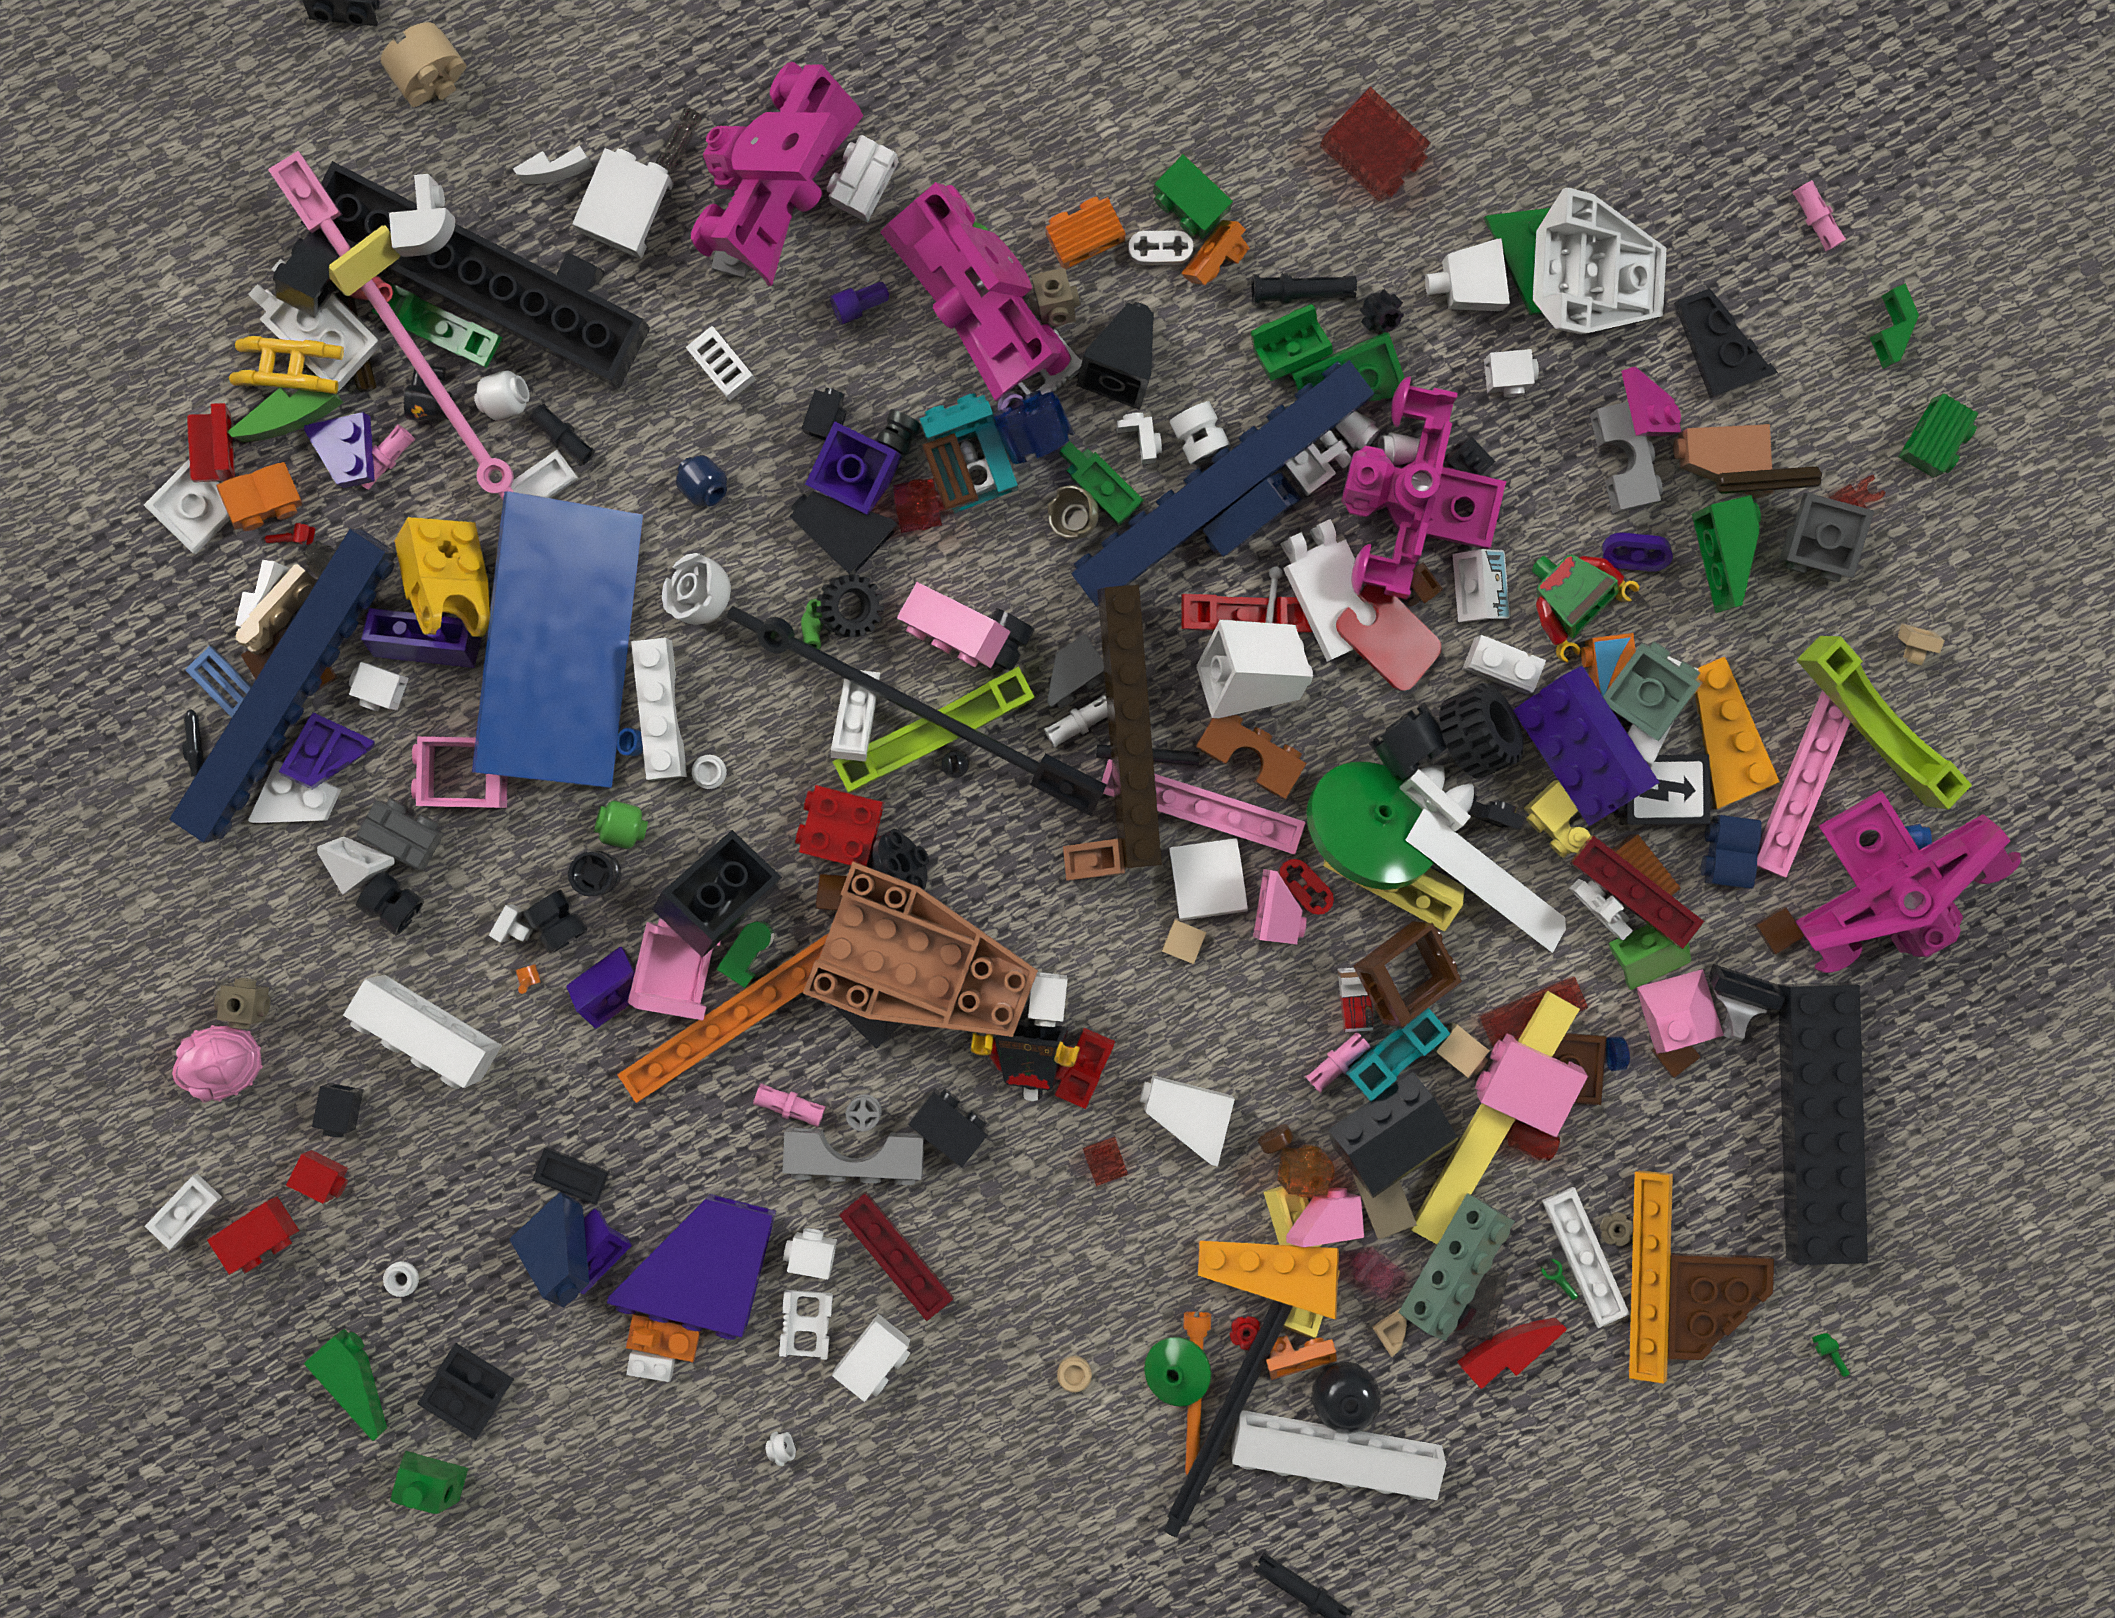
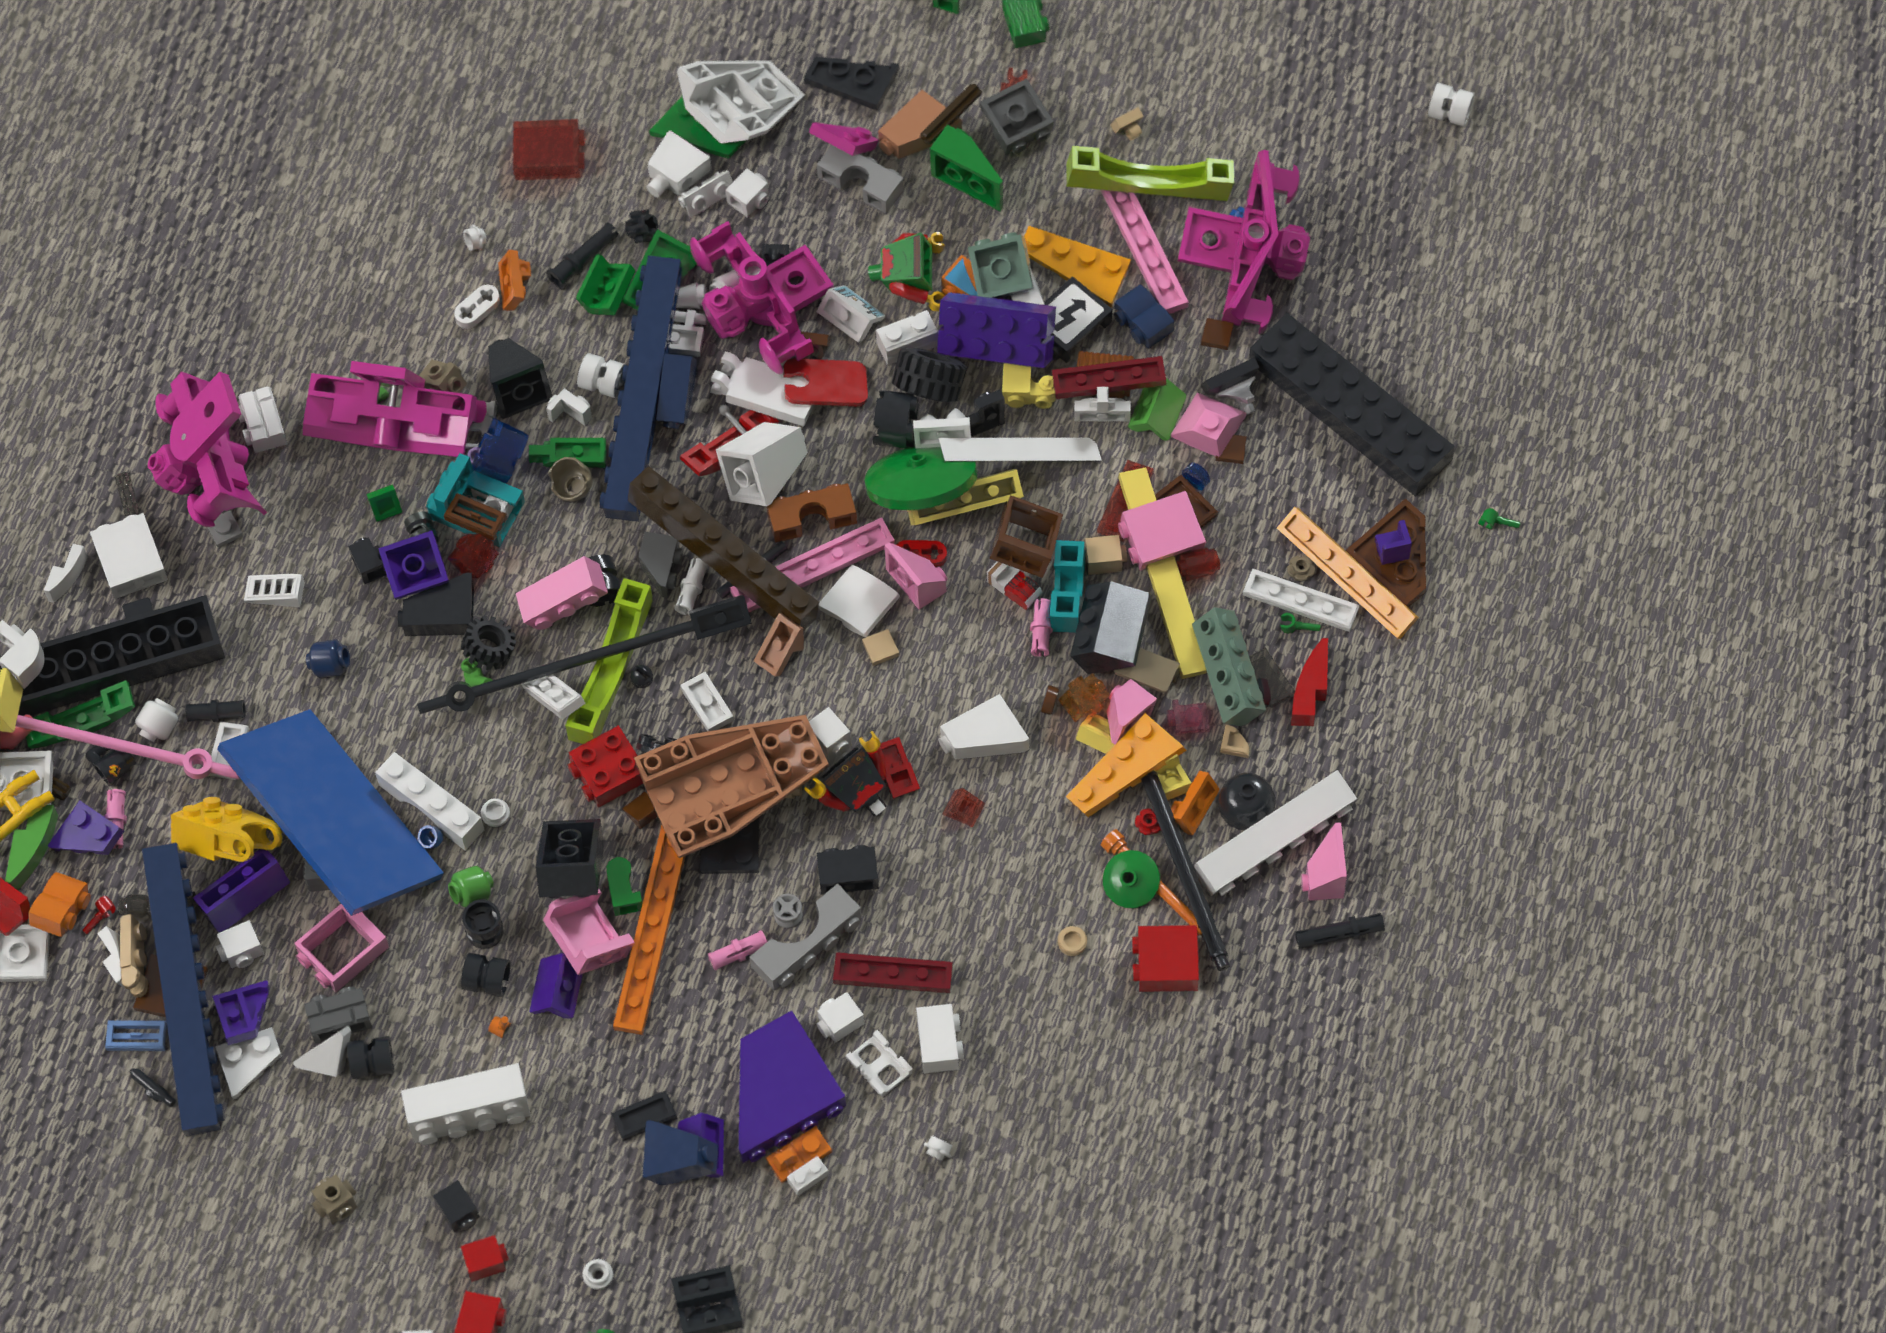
camera: 40 degrees left, 25 degrees down
(217, 1062) = (350, 1250): bright pink head -> none
(510, 925) = (461, 1003): white tile -> none
(697, 590) = (386, 713): white cylinder -> none
(849, 304) = (323, 488): dark purple piece -> none
(892, 371) = (384, 503): none -> green tile
(984, 848) = (707, 702): none -> white plate
(1084, 232) = (424, 334): orange brick -> none
(1132, 1477) = (1166, 958): none -> red brick
(1191, 197) = (468, 264): green brick -> none
(1225, 173) = (474, 238): none -> white plate
(1349, 1535) = (1326, 868): none -> bright pink slope
(1460, 333) = (710, 192): none -> white hinge
(1635, 551) = (918, 218): dark purple plate -> none
(1717, 1299) = (1394, 545): none -> dark purple panel

